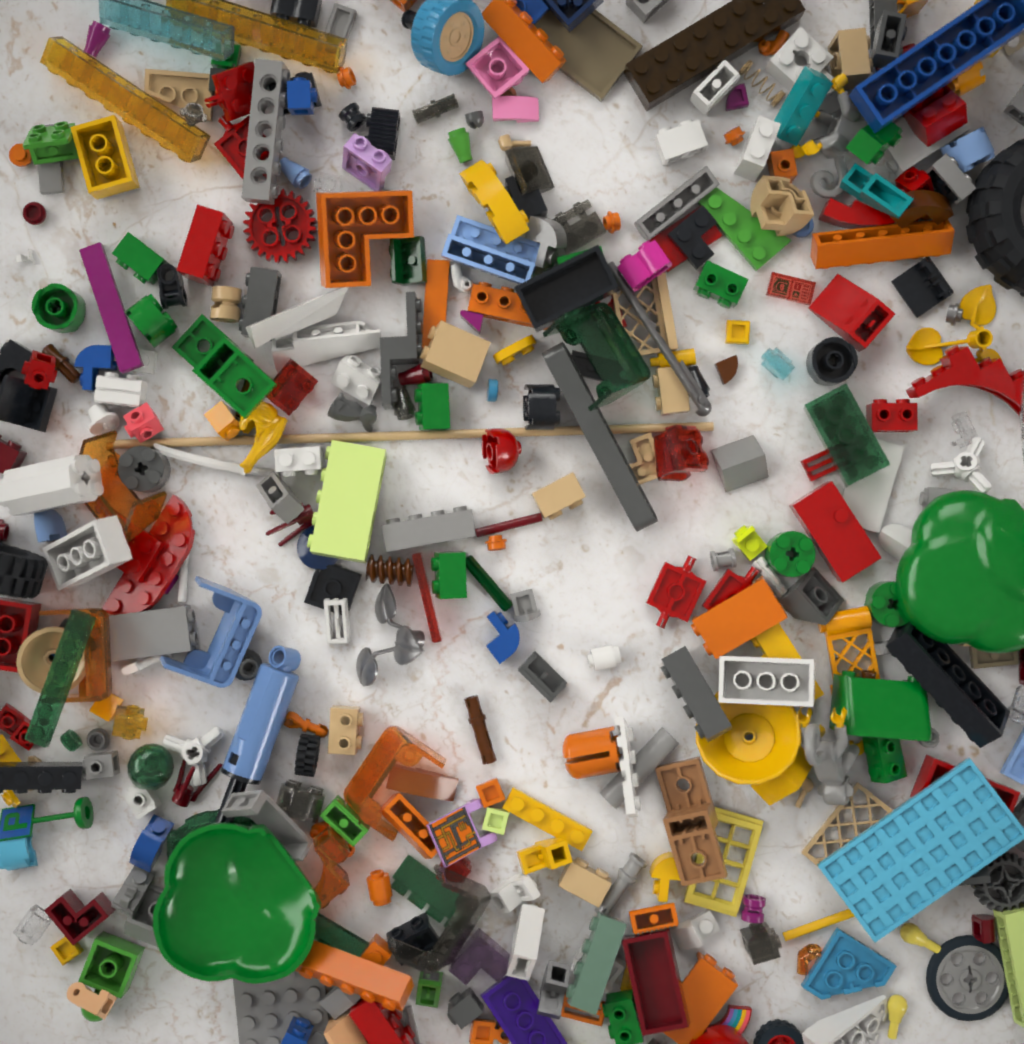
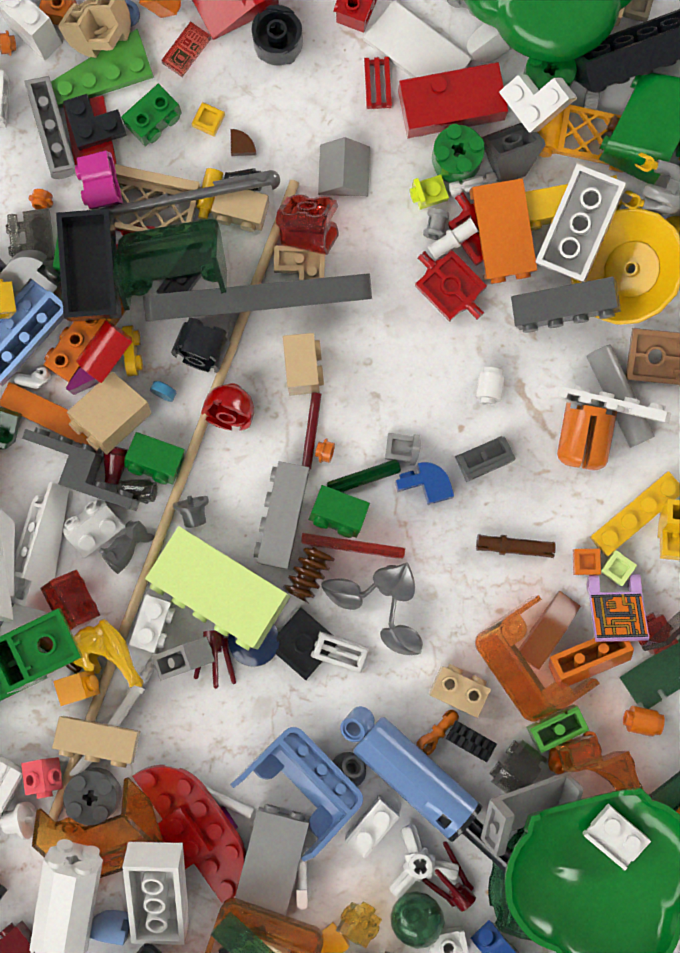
camera: 60 degrees left, 5 degrees down
(187, 454) = (96, 741): none -> tan brick
(209, 702) = (372, 827): none -> white brick
(275, 901) = (616, 837): none -> white plate
(403, 454) = (192, 510): none -> dark grey piece
(503, 330) = (104, 351): none -> red brick
(715, 578) = (453, 238): none -> white pin
(777, 363) = (256, 91): clear light blue brick -> none
(846, 435) = (358, 49): clear green brick -> none
(854, 600) = (536, 106): none -> white brick

